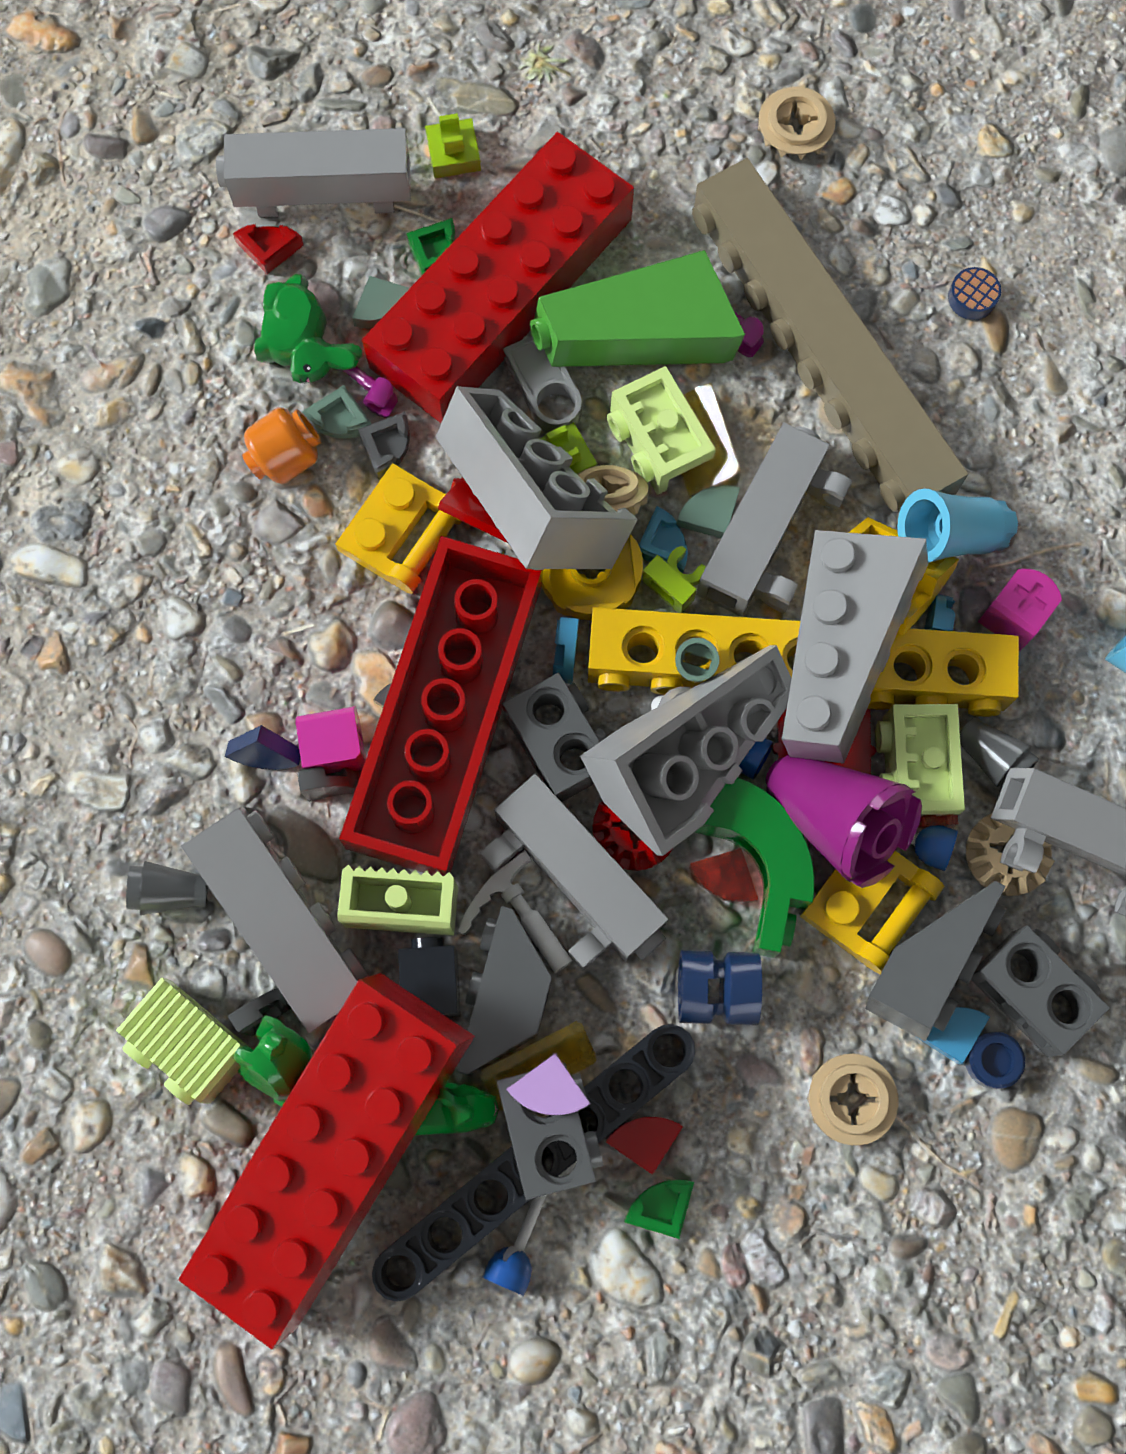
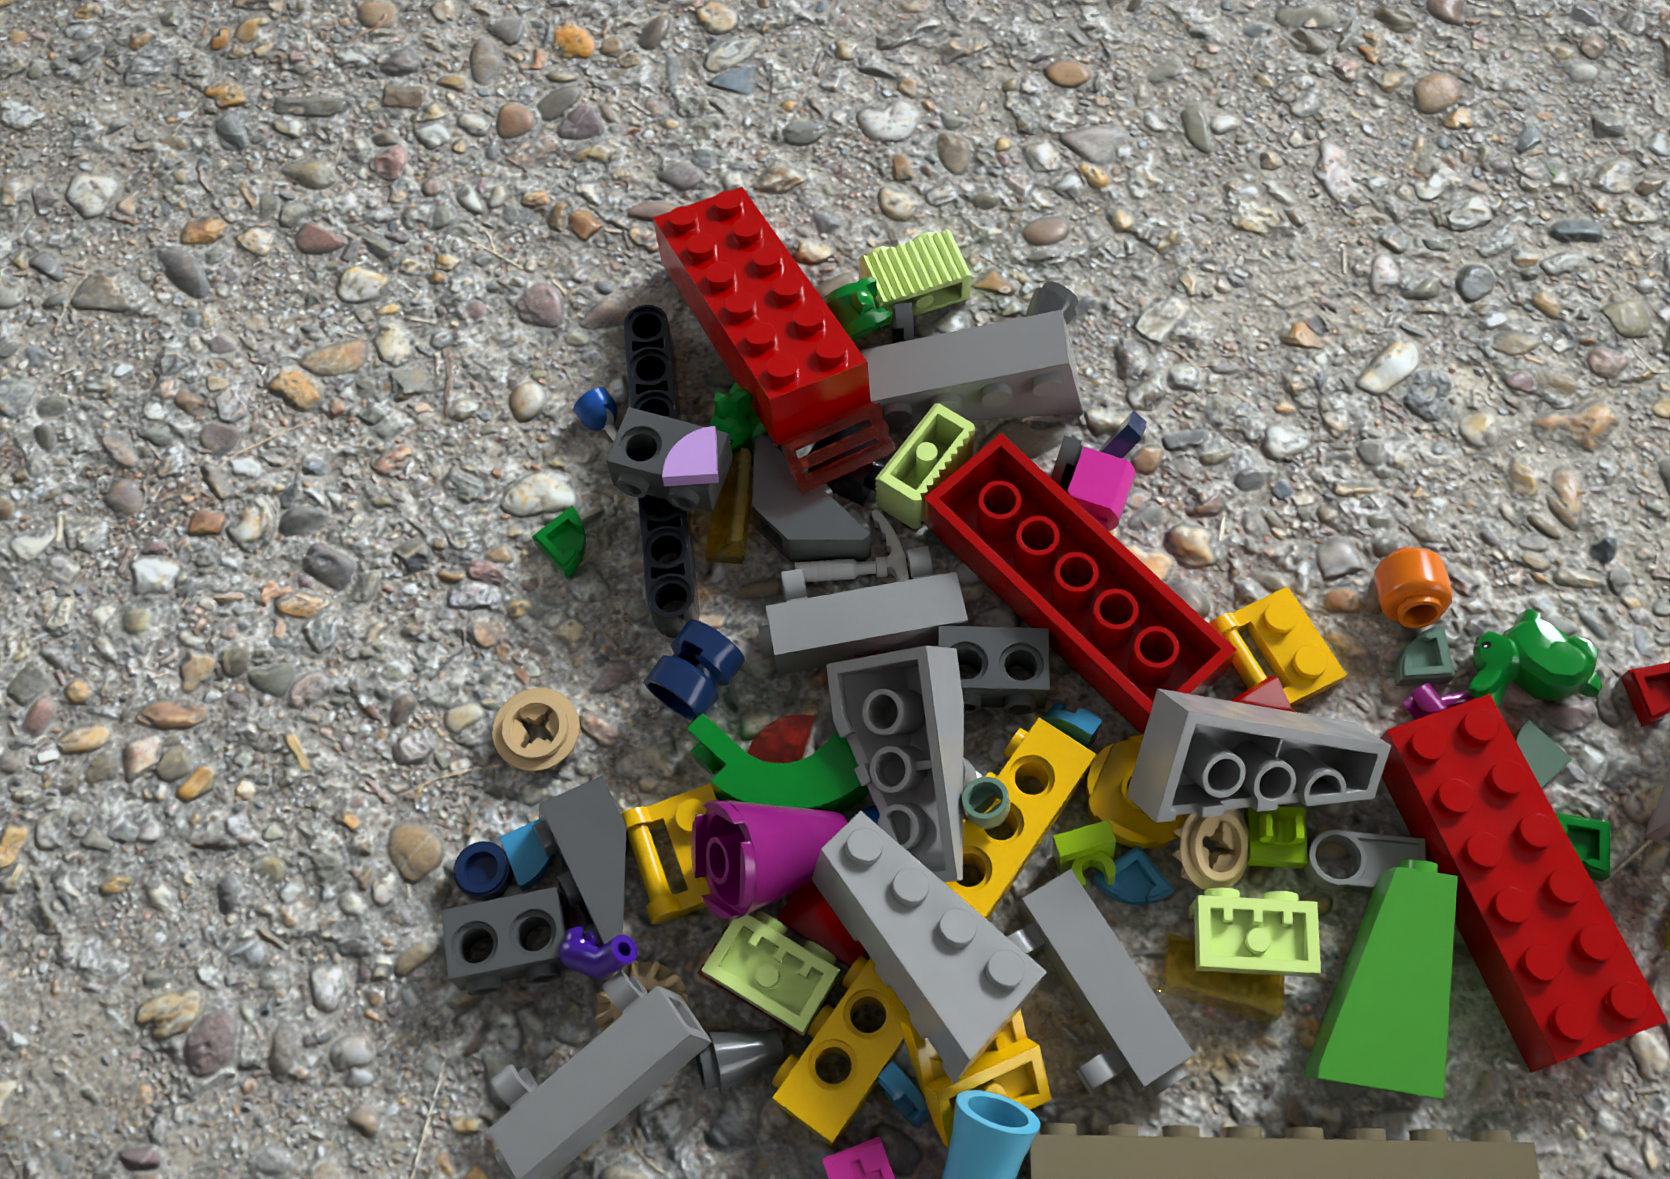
camera: 125 degrees right, 10 degrees down
(386, 442) = (1373, 686): dark grey tile -> none
(442, 973) = (843, 466): none -> clear red tile
(645, 1140) = (619, 556): red tile -> none
(709, 510) = (1145, 941): sand green tile -> none
(753, 335) = (1322, 1104): magenta hand -> none
(935, 845) = (693, 937): blue hinge -> none
(1019, 890) = (601, 962): none -> dark purple arm

